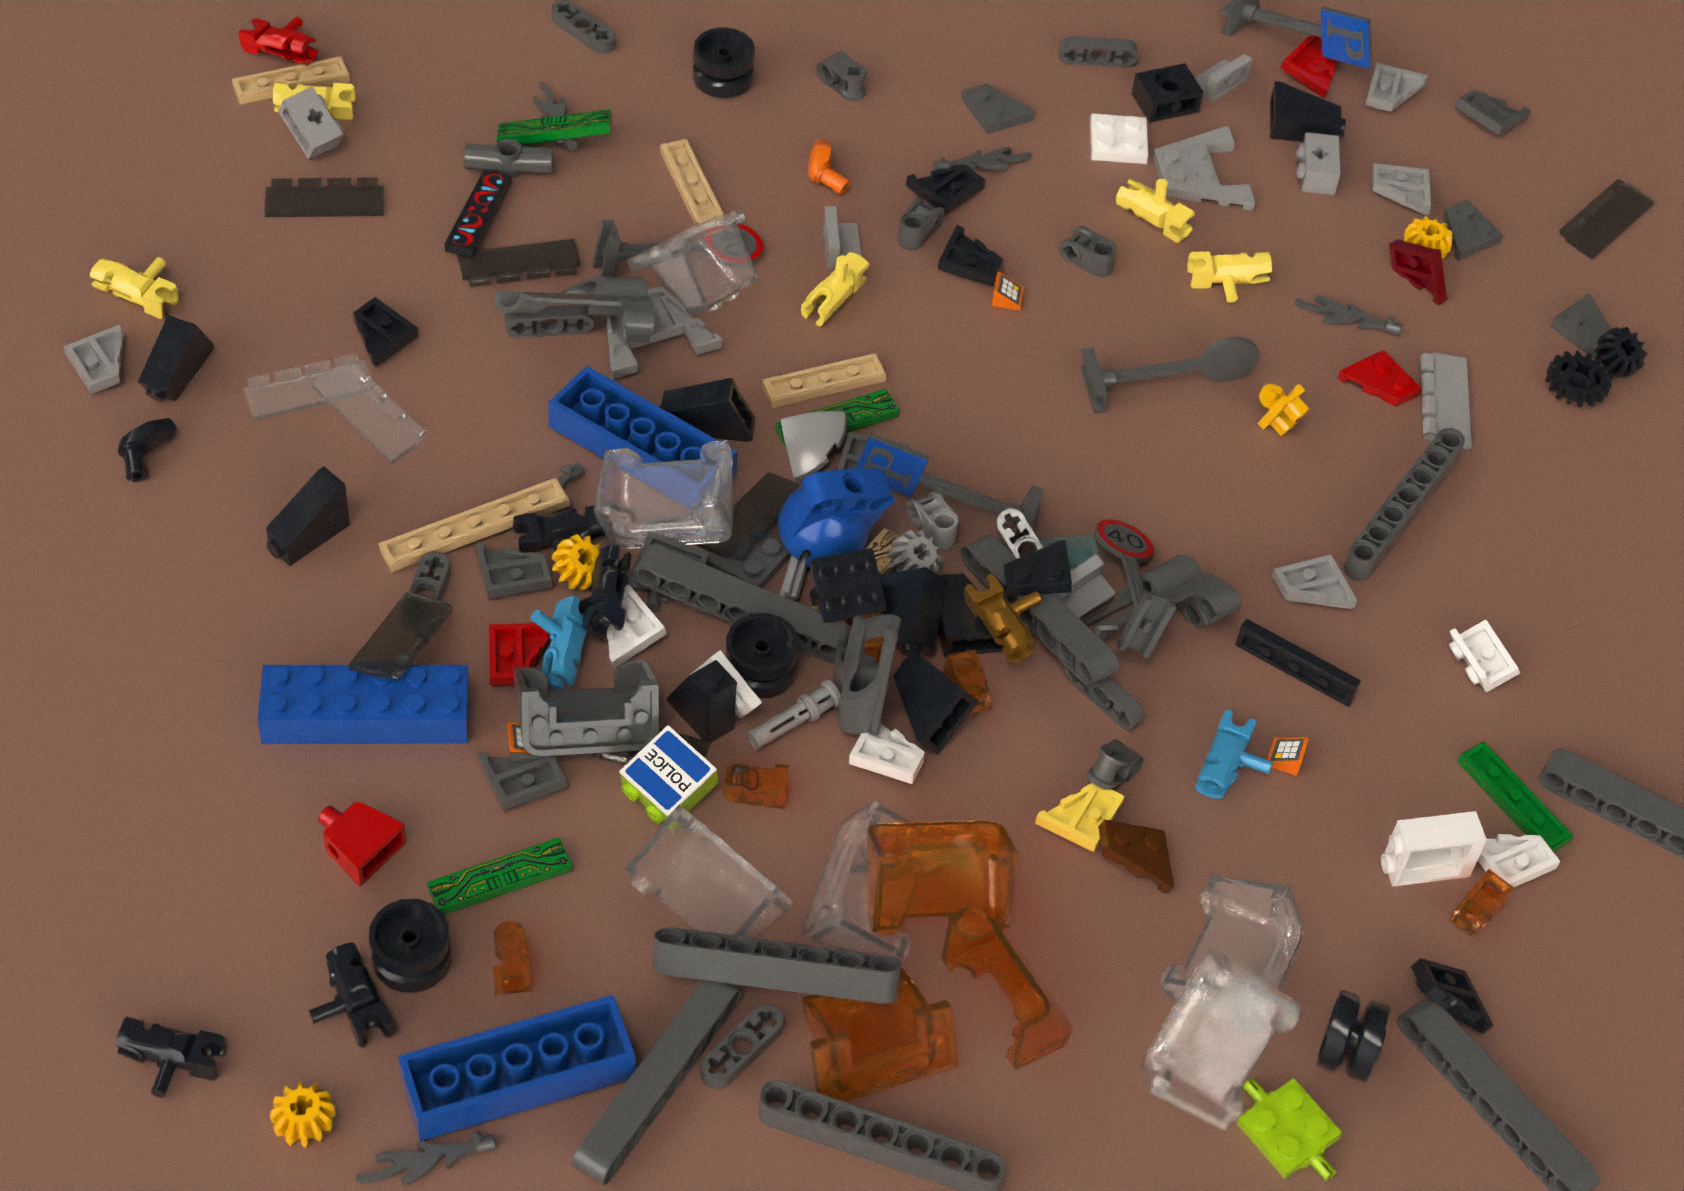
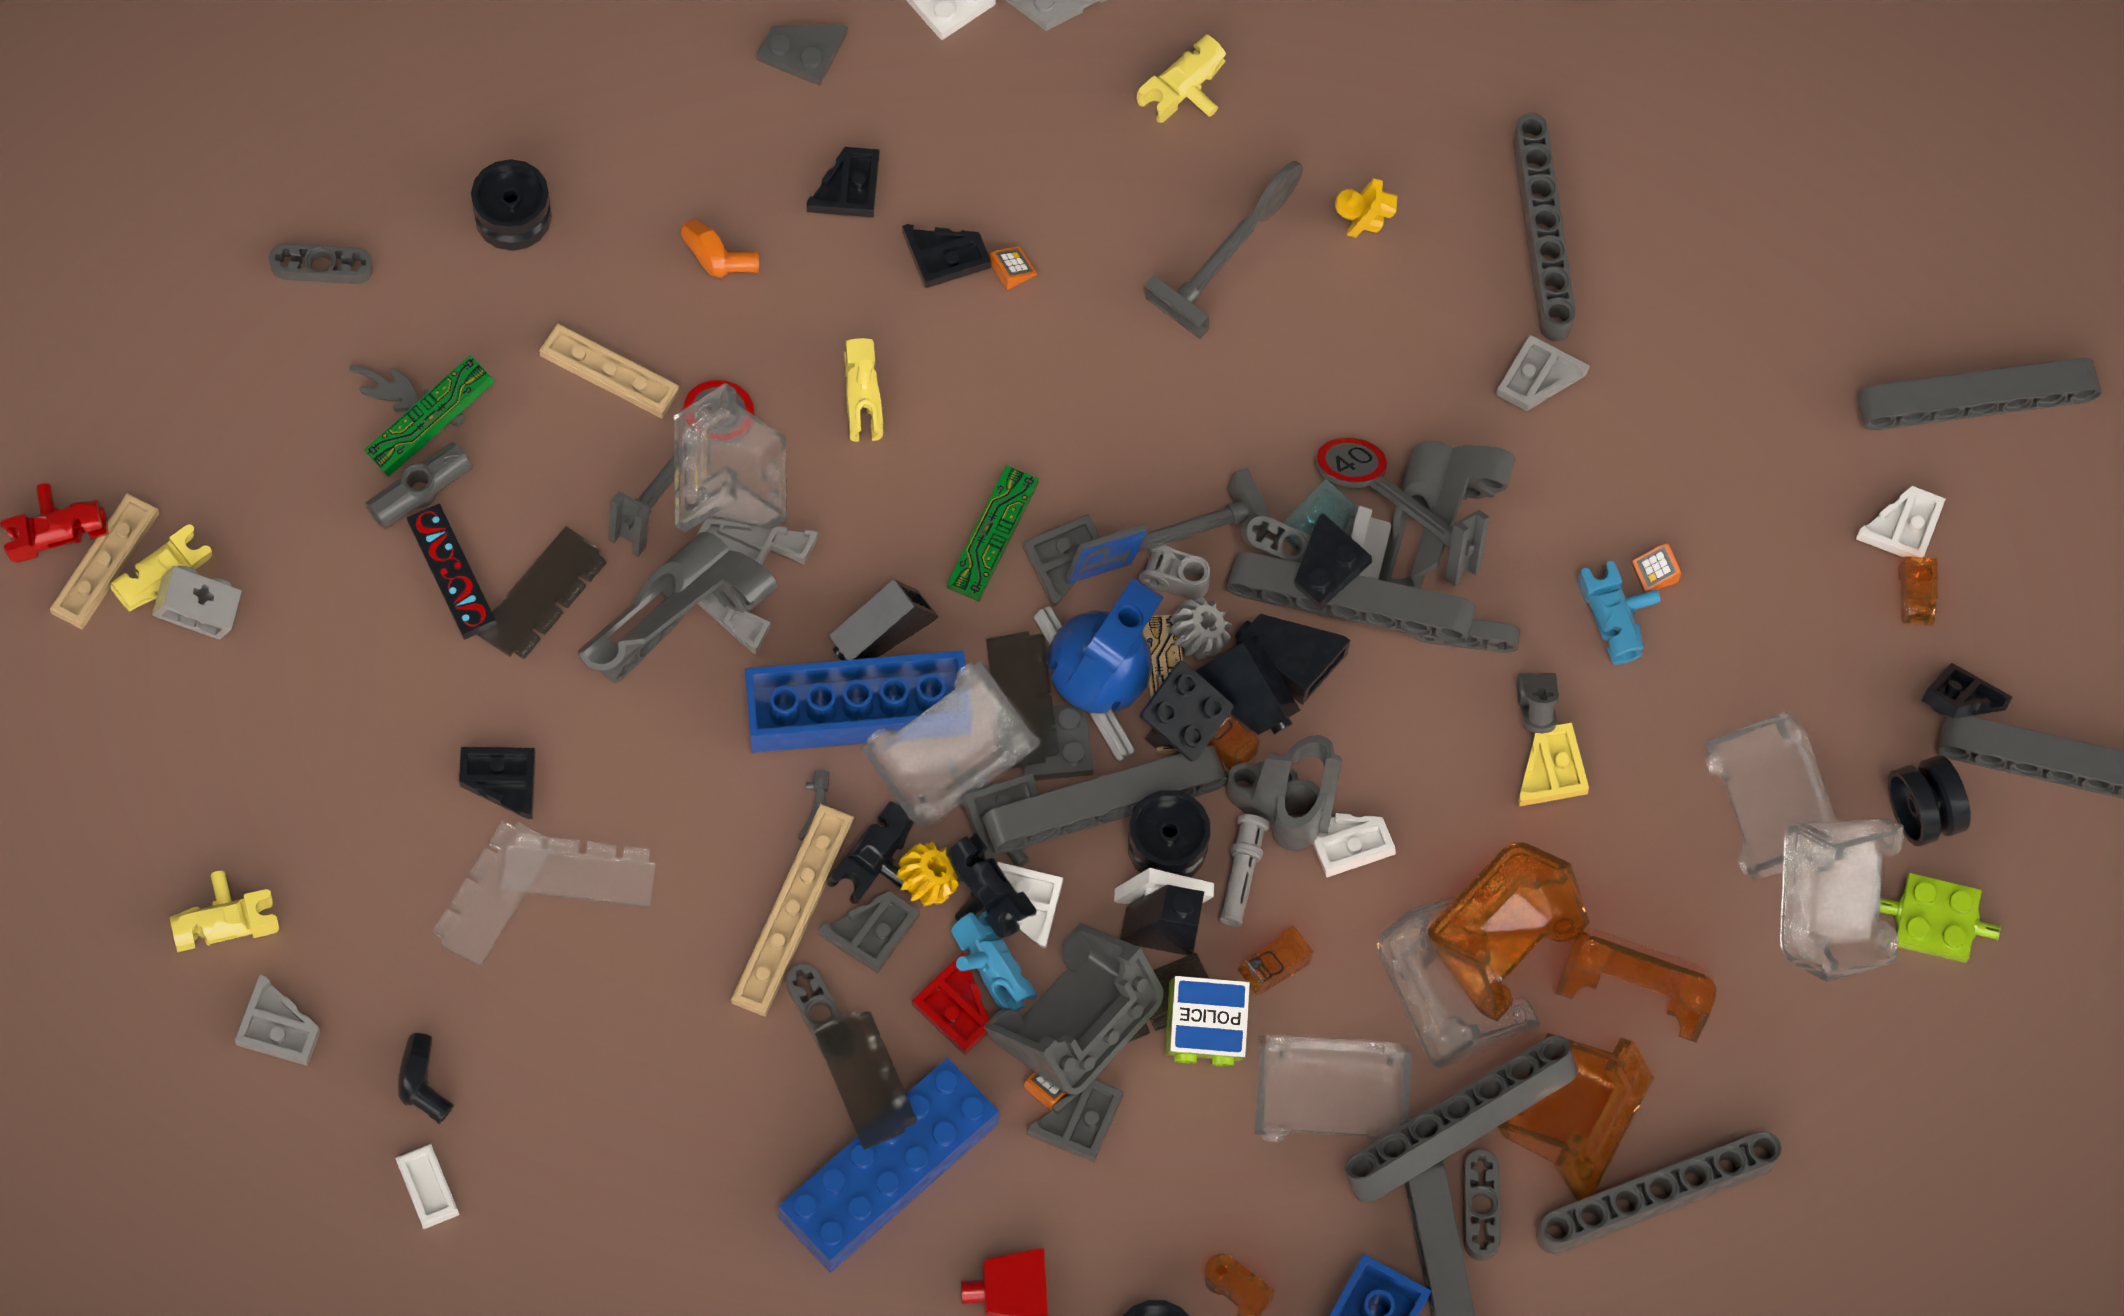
camera: 40 degrees left, 15 degrees up
(79, 506) = (427, 1186): none -> white tile
(174, 359) = (357, 972): black slope -> none
(309, 518) = (655, 1030): black slope -> none
(316, 200) = (281, 681): clear smoke windscreen -> none
(499, 876) = (1151, 1223): green tile -> none
(811, 439) = (1000, 576): light grey brick -> none
(823, 380) = (940, 499): tan tile -> none
(838, 237) = (810, 329): light grey panel -> none
(843, 75) = (629, 123): dark grey piece -> none
(919, 224) = (864, 246): dark grey piece -> none
(931, 701) = (1362, 766): black slope -> none
(970, 678) = (1355, 718): clear orange leg -> none
(993, 160) = (856, 122): dark grey piece -> none
(1003, 617) = (1339, 635): pearl gold piece -> none
(1092, 251) = (1042, 158): dark grey piece -> none
(1138, 850) = (1625, 765): reddish brown wing -> none
(1156, 209) = (1060, 58): light yellow piece -> none
(1297, 662) = (1593, 471): black tile -> none
(1340, 315) = (1320, 49): dark grey piece -> none
(1382, 378) = (1410, 97): red wing -> none
(1433, 848) = (1849, 572): white window -> none
(1445, 395) = (1486, 77): light grey windscreen -> none
(1484, 655) = (1731, 337): white bracket -> none
(1513, 796) = (1858, 461): green tile -> none

